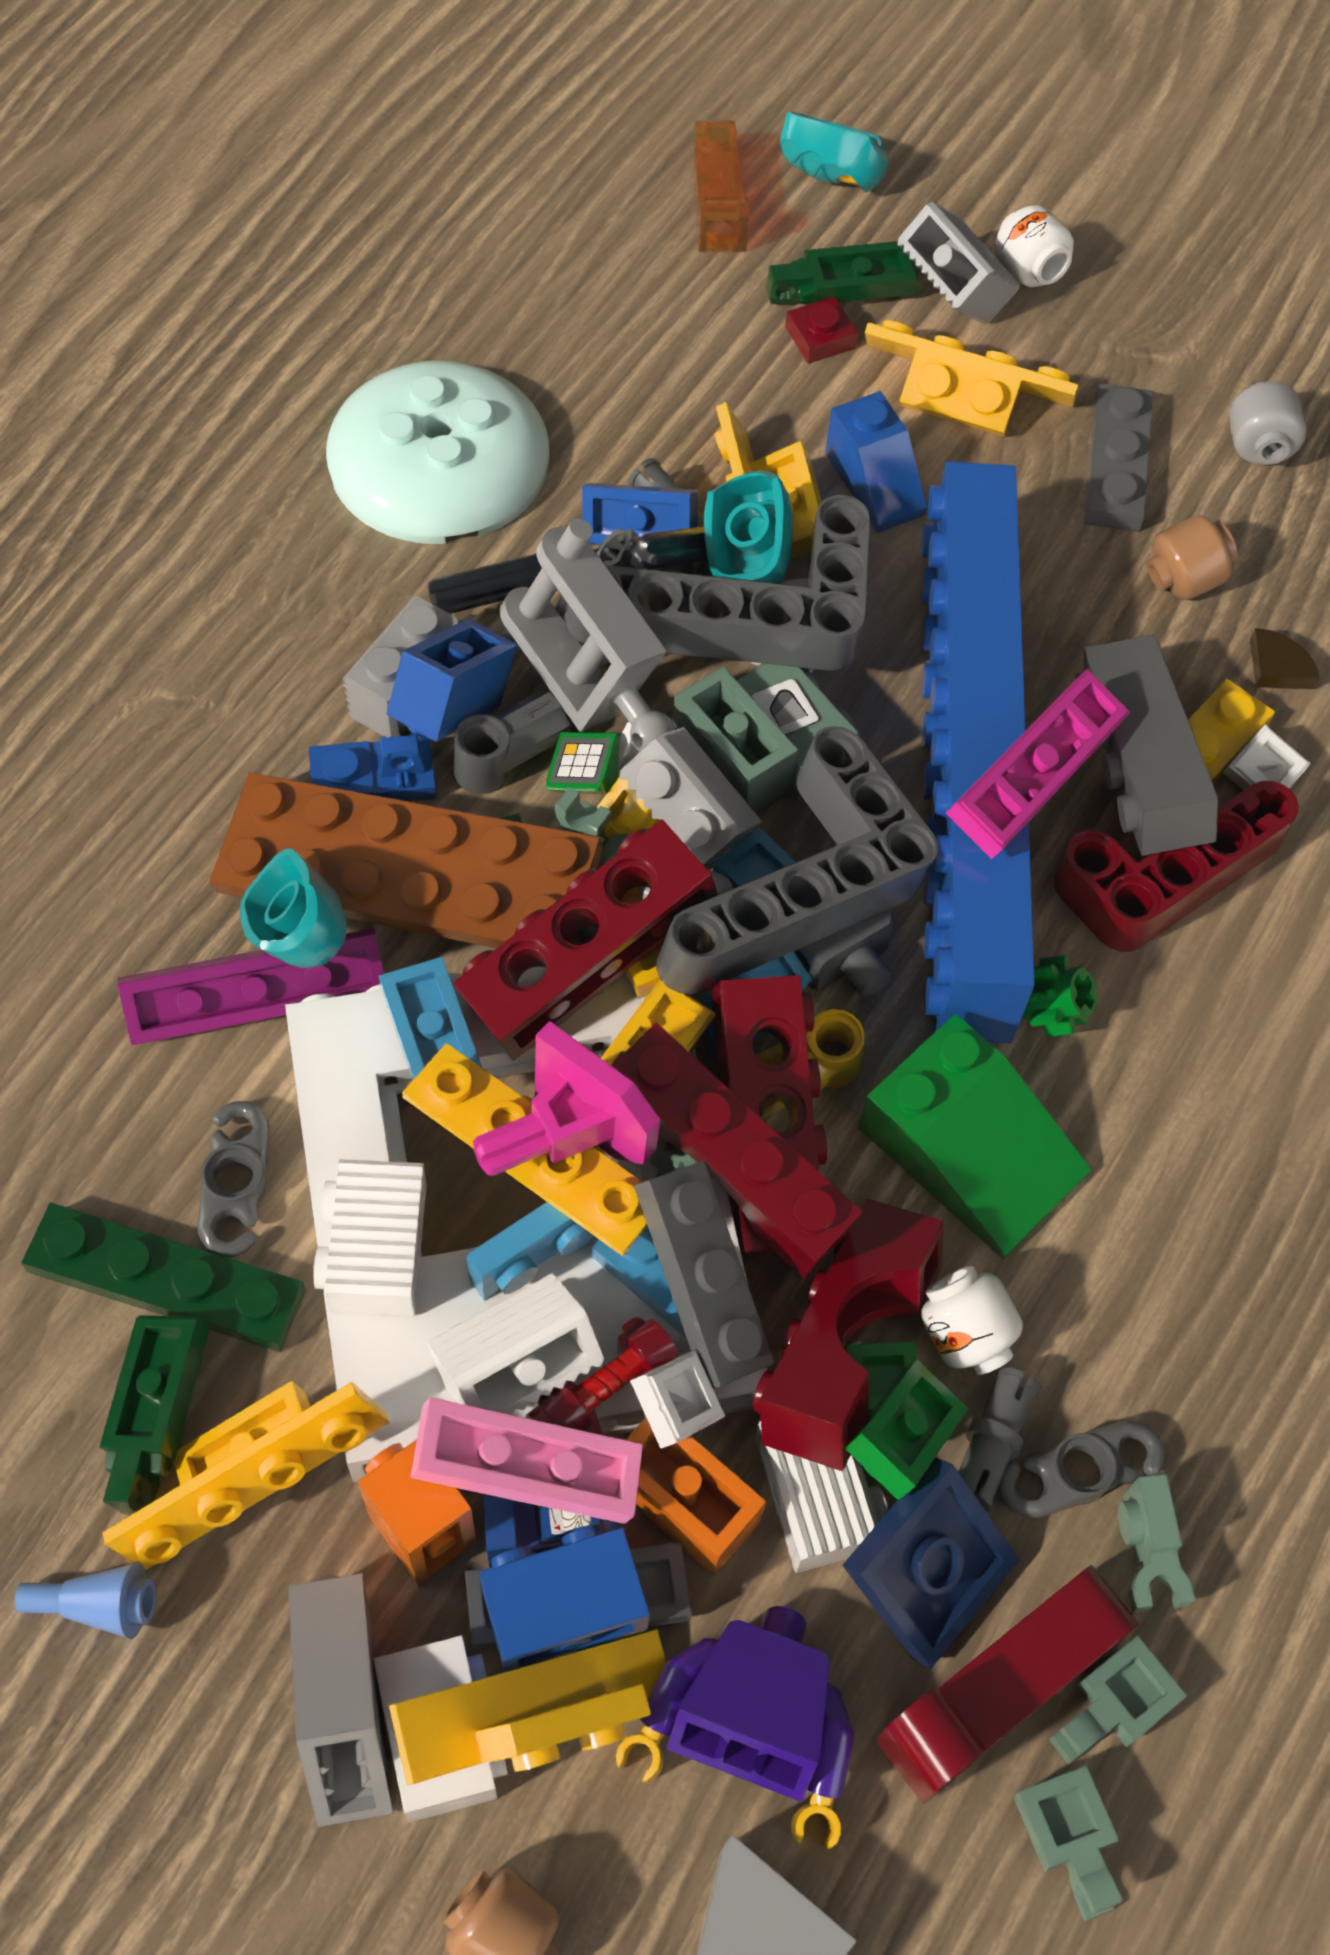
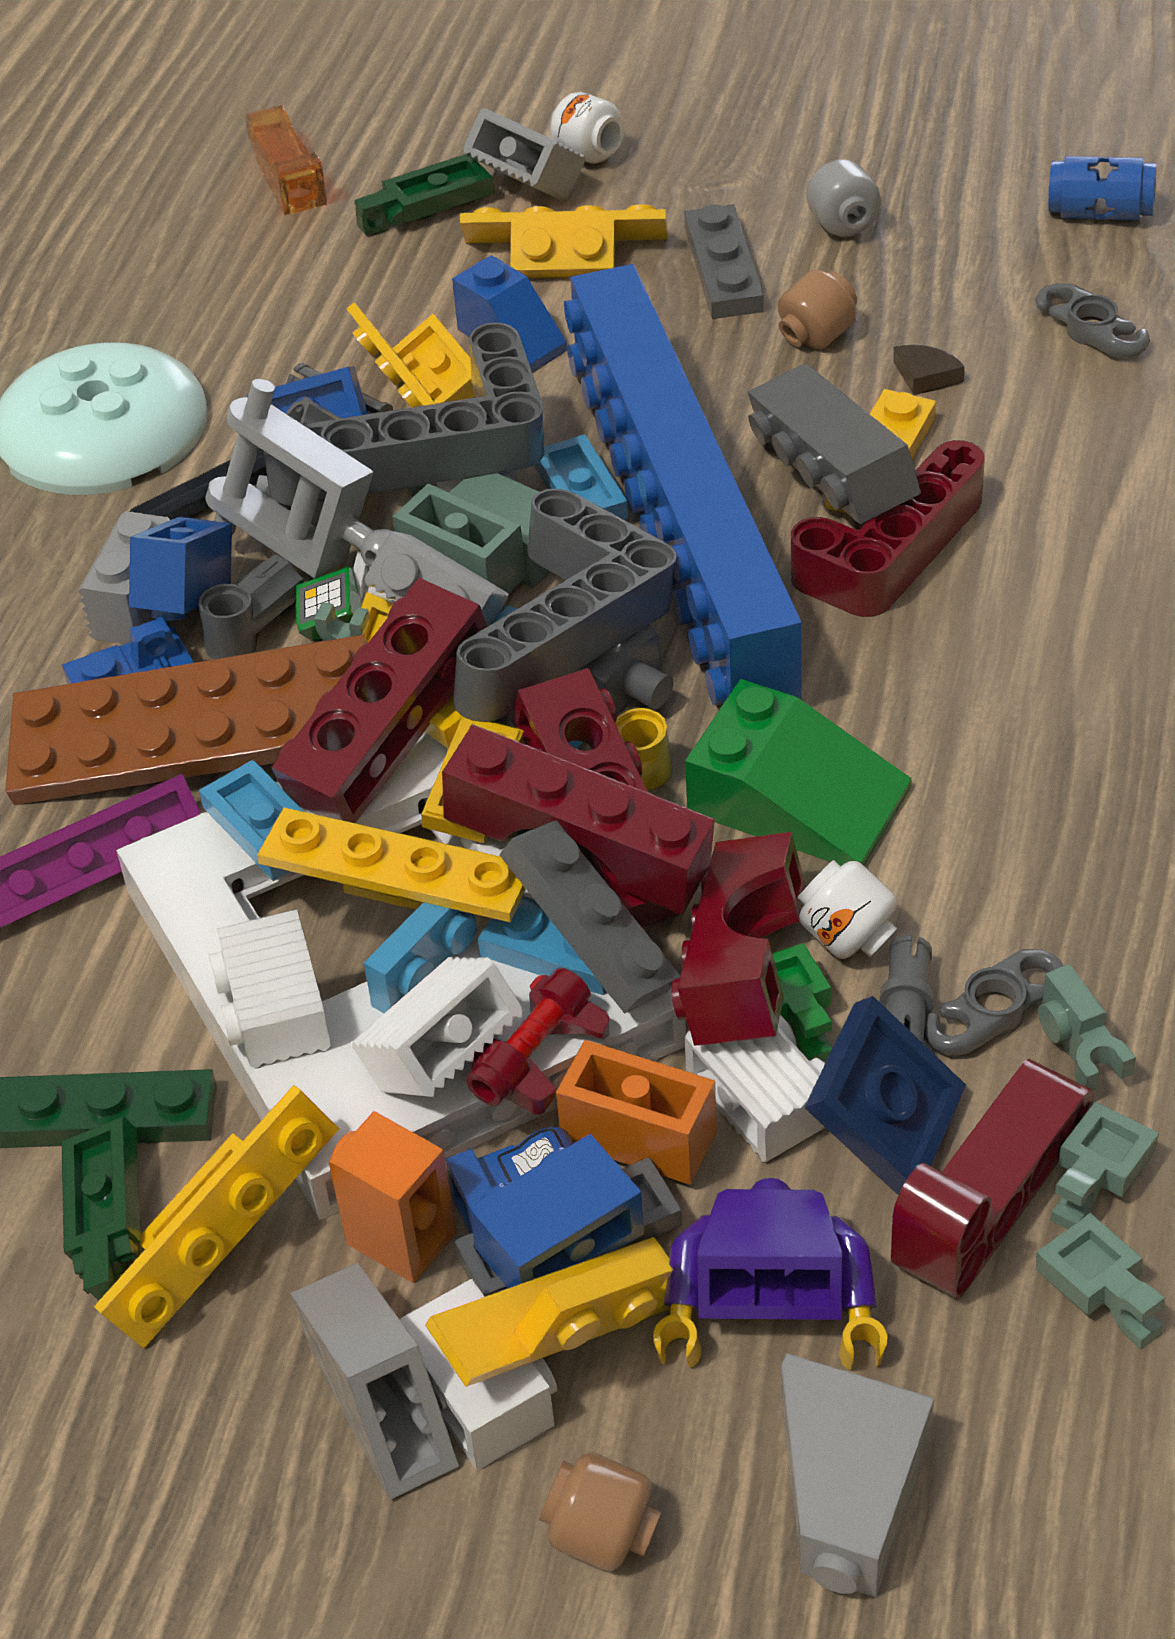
camera: 10 degrees left, 15 degrees down
(107, 1600) = (115, 1373): medium blue cone -> none
(219, 1205) = (118, 989): dark grey piece -> none
(293, 912) = (101, 766): teal piece -> none
(527, 1460) = (481, 1096): bright pink plate -> none
(575, 1107) = (424, 800): dark pink piece -> none
(668, 548) = (345, 402): black axle -> none
(677, 1399) = (602, 1018): white tile -> none
(749, 528) = (412, 369): teal piece -> none
(786, 706) = (499, 500): sticker -> none
(821, 330) = (419, 239): dark red plate -> none
(833, 151) = (378, 105): teal piece -> none
(883, 696) = (578, 468): none -> dark azure plate
(907, 1429) = (820, 991): green plate -> none
(1038, 764) = (739, 462): dark pink plate -> none
(1060, 996) = (830, 652): green gear -> none
(1266, 759) = (941, 428): white tile -> none

